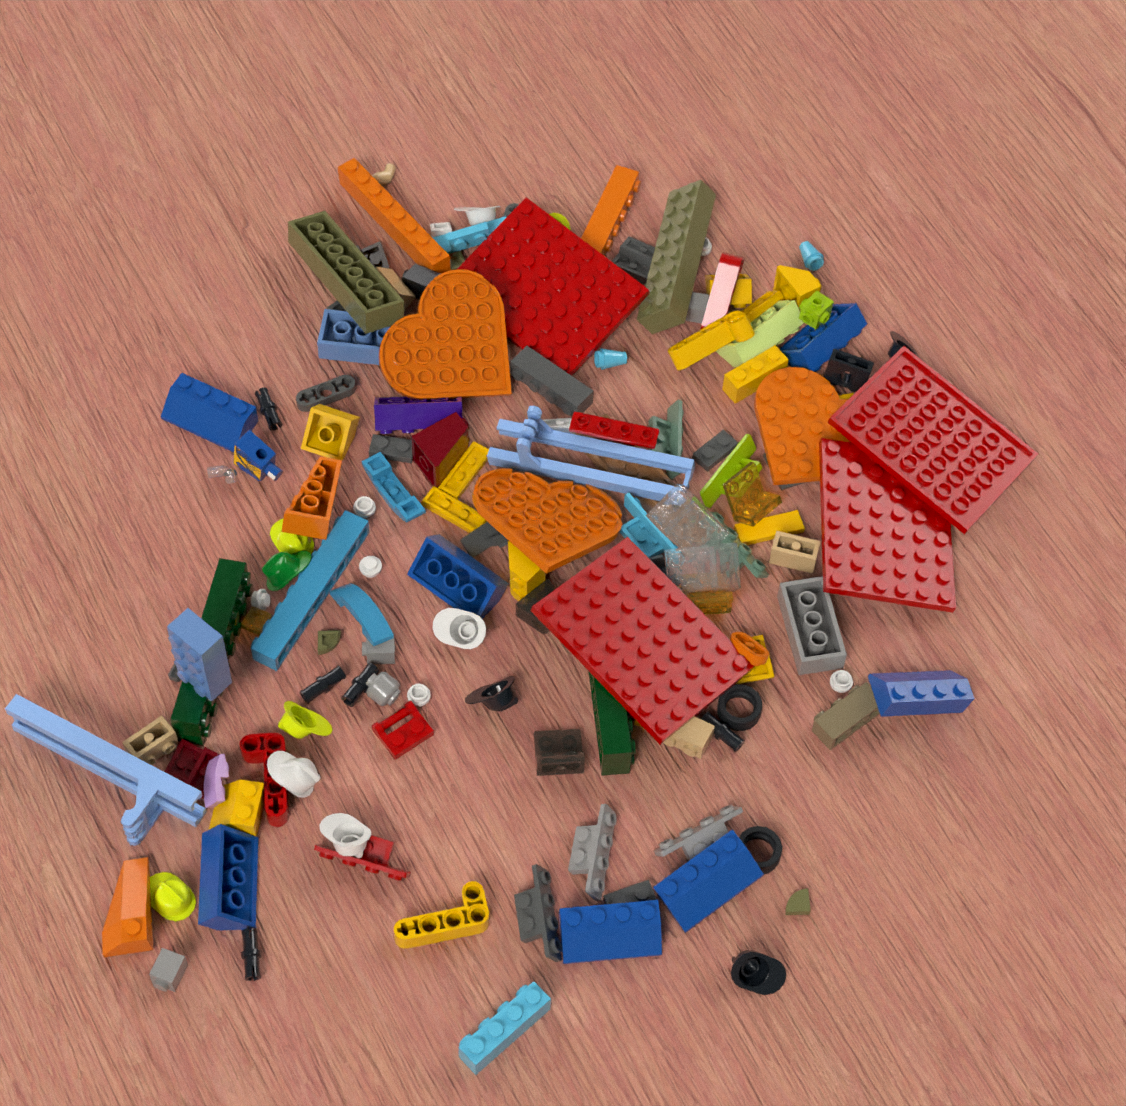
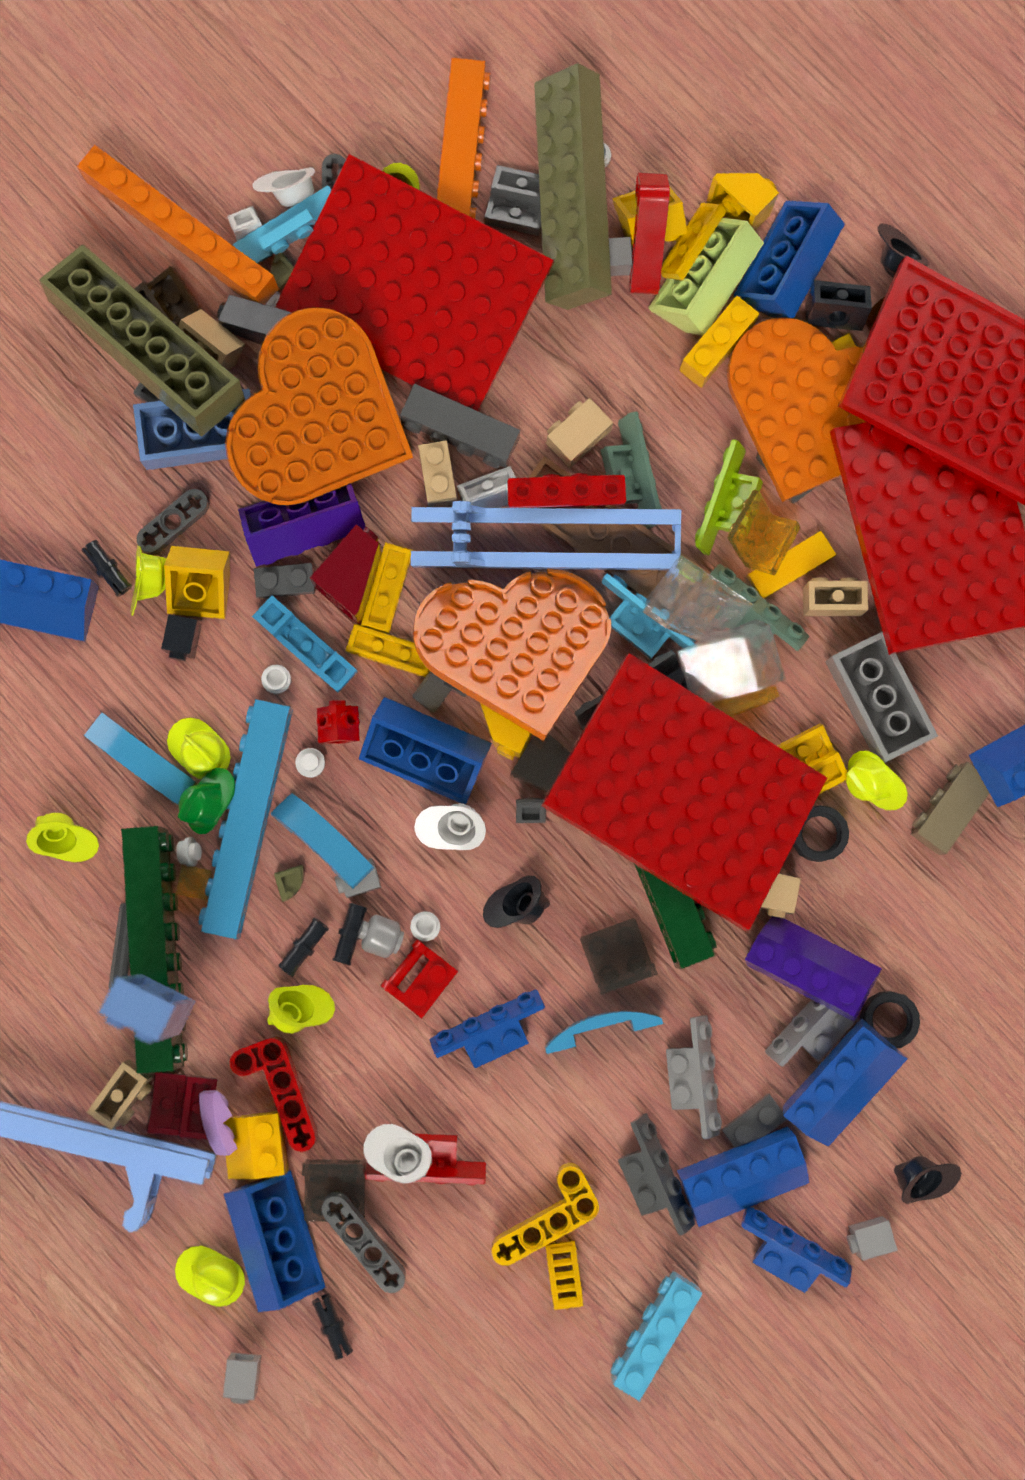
camera: 20 degrees left, 25 degrees up
(130, 915) = (172, 1319): orange wedge -> none
(172, 567) = (60, 838): none -> neon yellow piece
(220, 471) = (82, 677): clear arm -> none
(246, 530) = (138, 758): none -> dark azure slope
(255, 457) = (106, 646): blue torso -> none
(288, 853) = (330, 1176): none -> clear smoke bracket
(293, 773) = (306, 1085): white piece -> none
(296, 420) = (149, 577): none -> neon yellow piece
(296, 898) = (360, 1244): none -> dark grey beam
(304, 461) = (181, 637): none -> black brick
(313, 505) = (214, 709): orange wedge -> none
(385, 176) = (142, 158): tan arm -> none
(399, 543) = (338, 723): none -> red brick
(441, 986) = (566, 1302): none -> yellow slope
(446, 781) = (490, 1033): none -> blue bracket
(523, 637) = (530, 810): none -> dark grey slope
(525, 396) = (437, 474): none -> tan brick
(530, 791) = (565, 1038): none -> dark azure slope
(609, 358) = (523, 368): medium azure cone -> none
(631, 1003) = (791, 1255): none -> blue bracket
(636, 404) = (578, 432): none -> tan brick
(699, 1004) = (871, 1238): none -> light grey brick
(705, 792) = (813, 967): none -> dark purple slope
(710, 339) = (651, 306): yellow beam -> none
(715, 450) = (695, 468): dark grey plate -> none
(723, 732) = (809, 873): black pin -> none
(749, 648) = (815, 756): orange plate -> none
(792, 681) = (874, 781): none -> neon yellow piece
(798, 903) = (952, 1072): olive tile -> none
(811, 256) = (745, 132): medium azure cone -> none
(816, 310) = (777, 227): lime brick -> none
(841, 681) = (932, 760): white plate -> none

